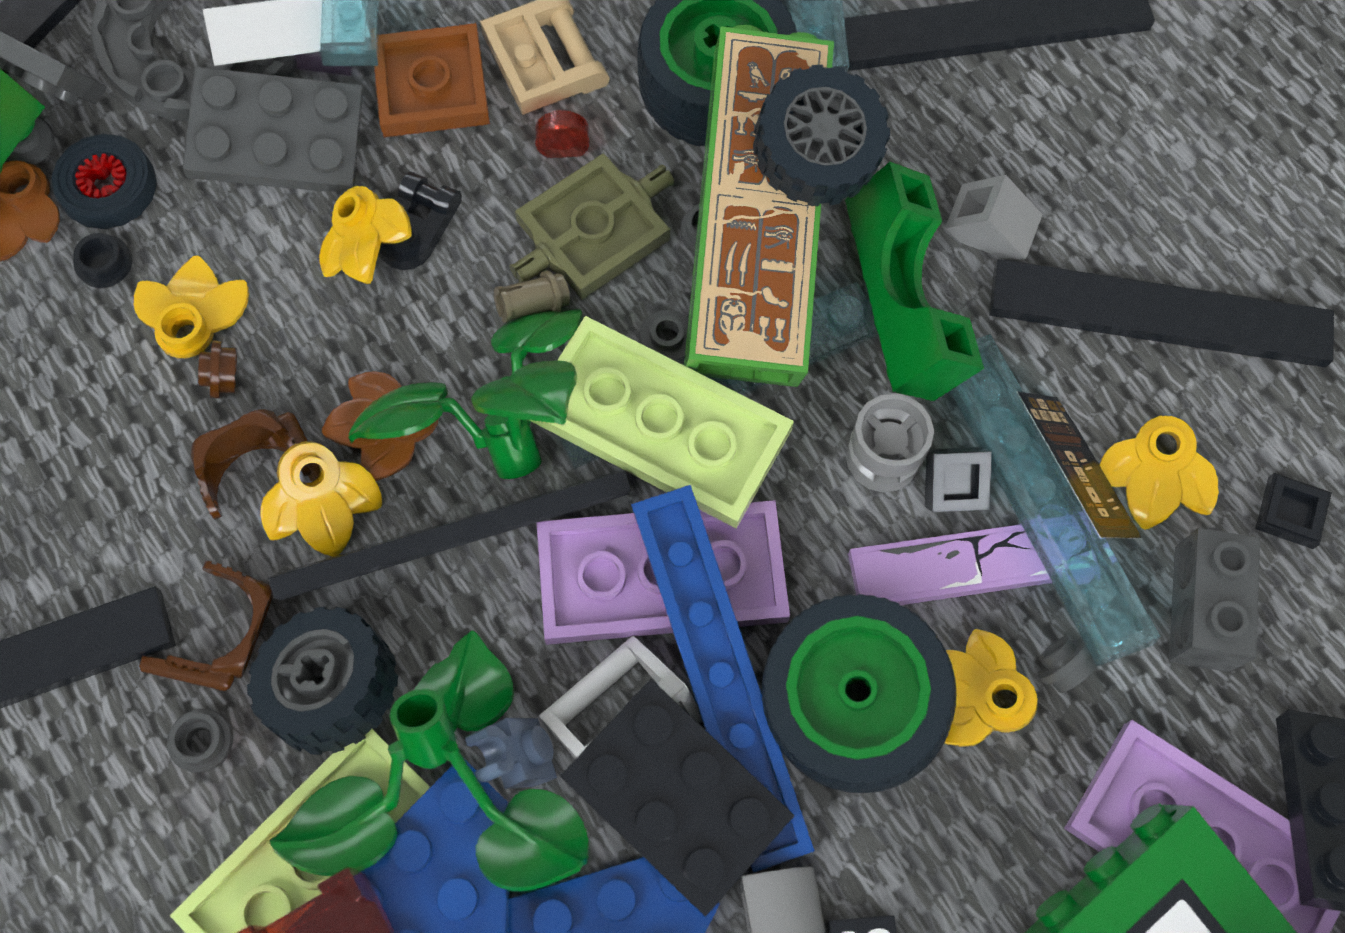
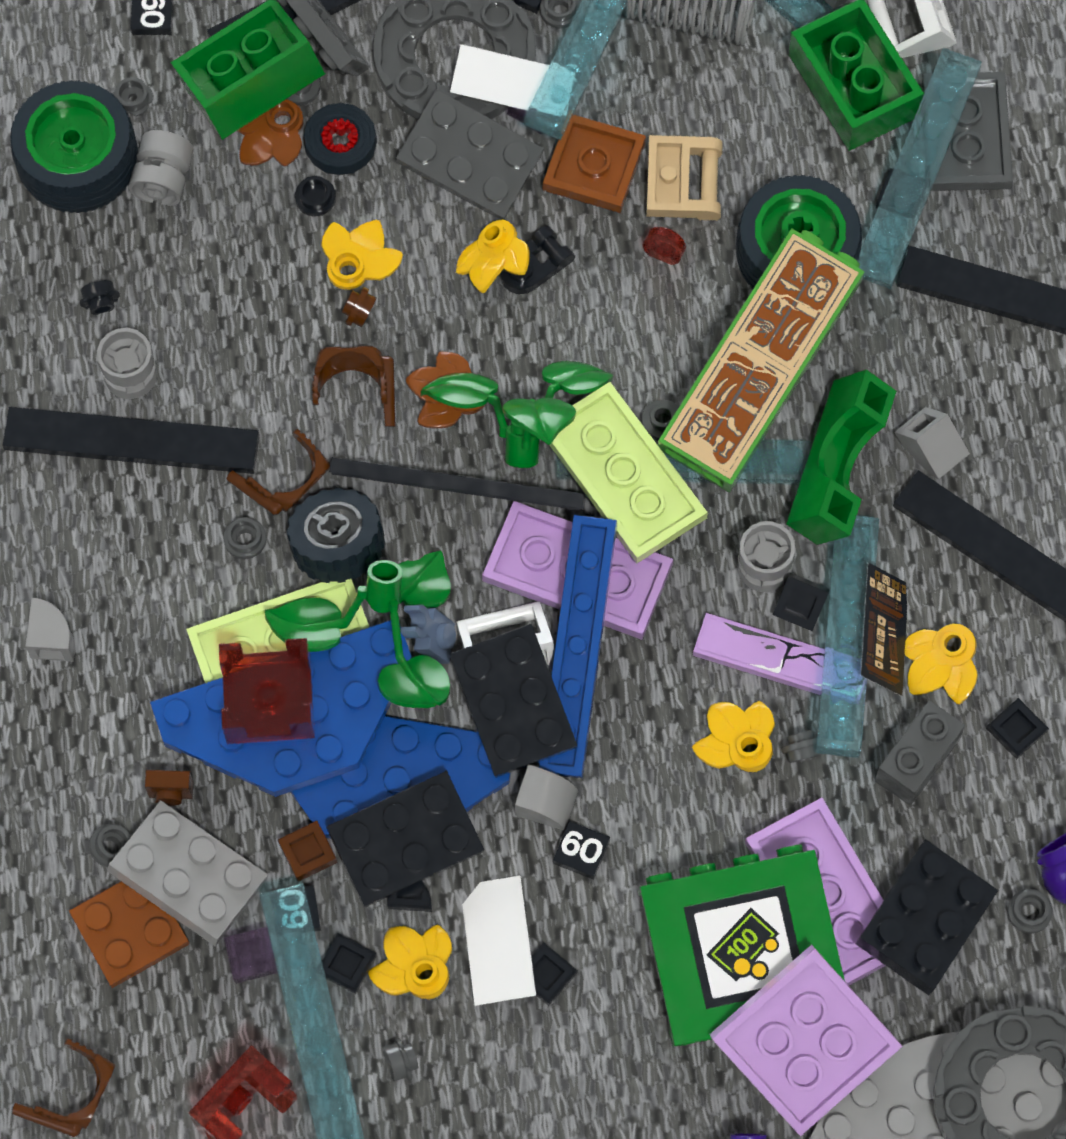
camera: 30 degrees right, 0 degrees up
(322, 507) = (384, 428): yellow plate -> none
(532, 296) = (586, 351): dark tan pin -> none
(593, 225) = (652, 319): olive plate -> none
(821, 135) = (816, 333): black wheel -> none
(866, 742) = (656, 697): wheel -> none

